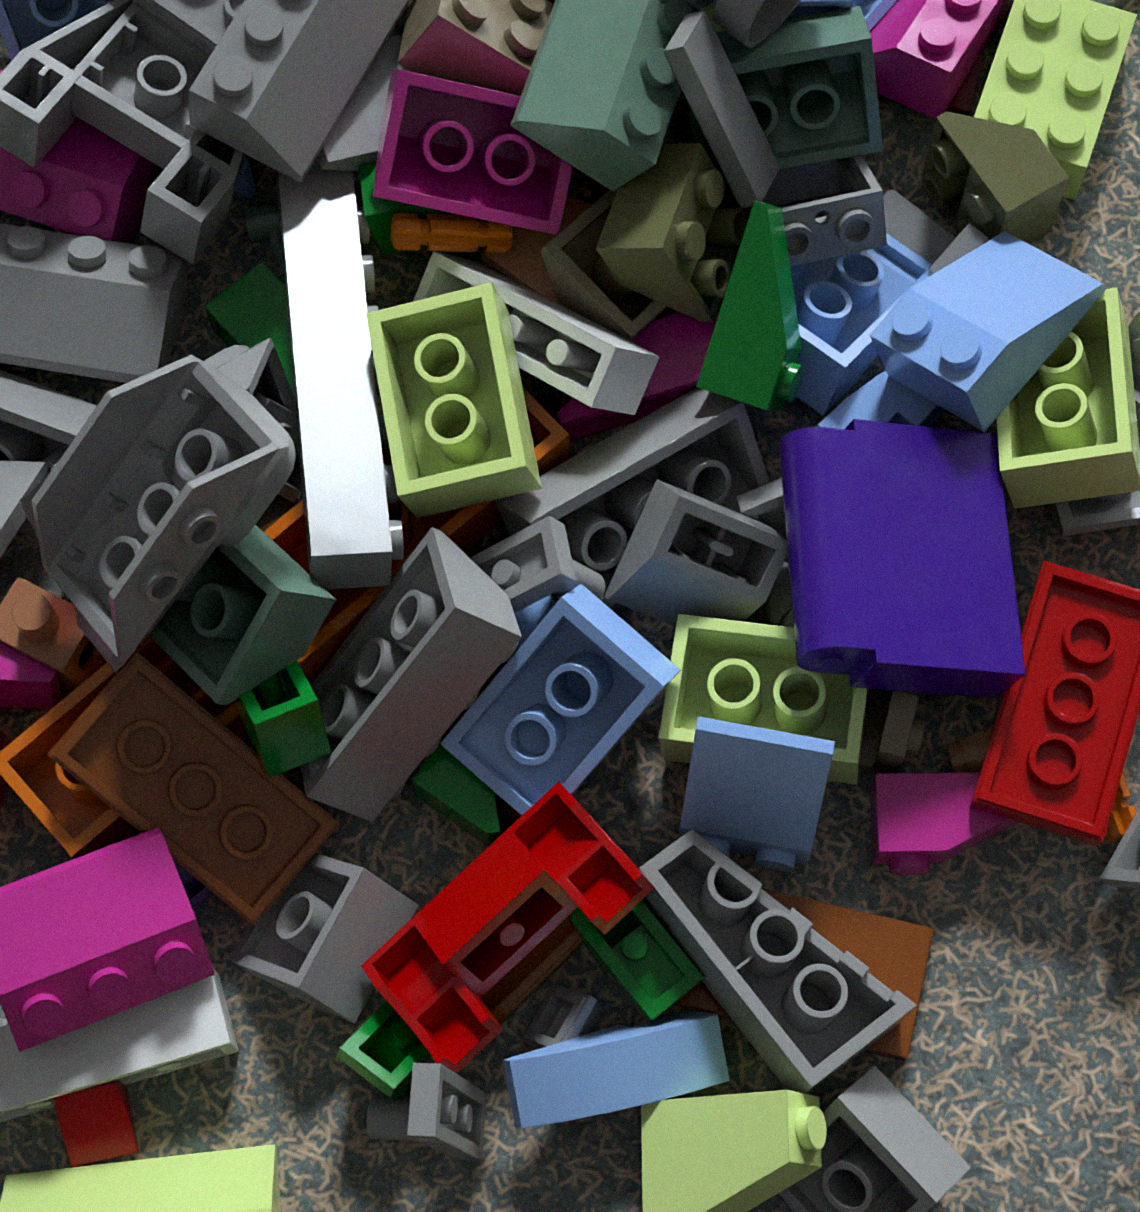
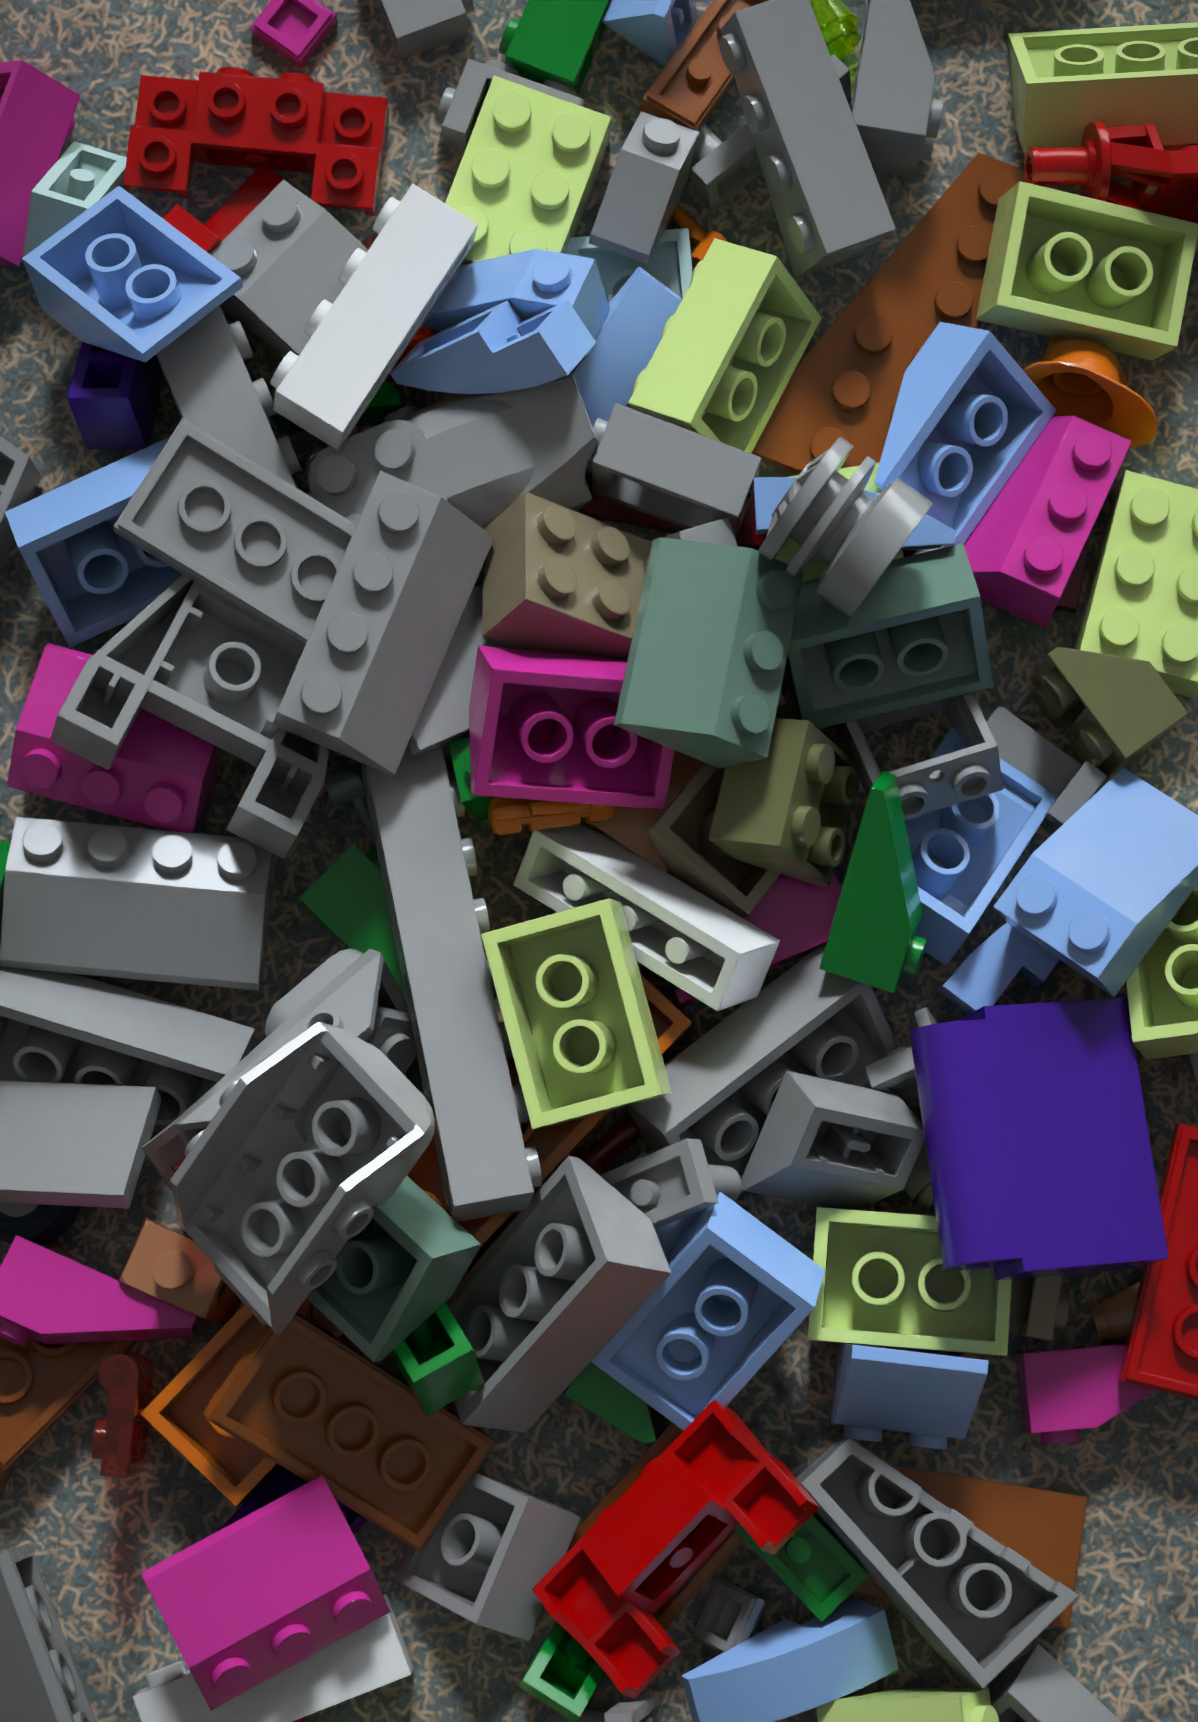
camera: 10 degrees left, 10 degrees up
(721, 108) = (829, 680): light grey tile -> none

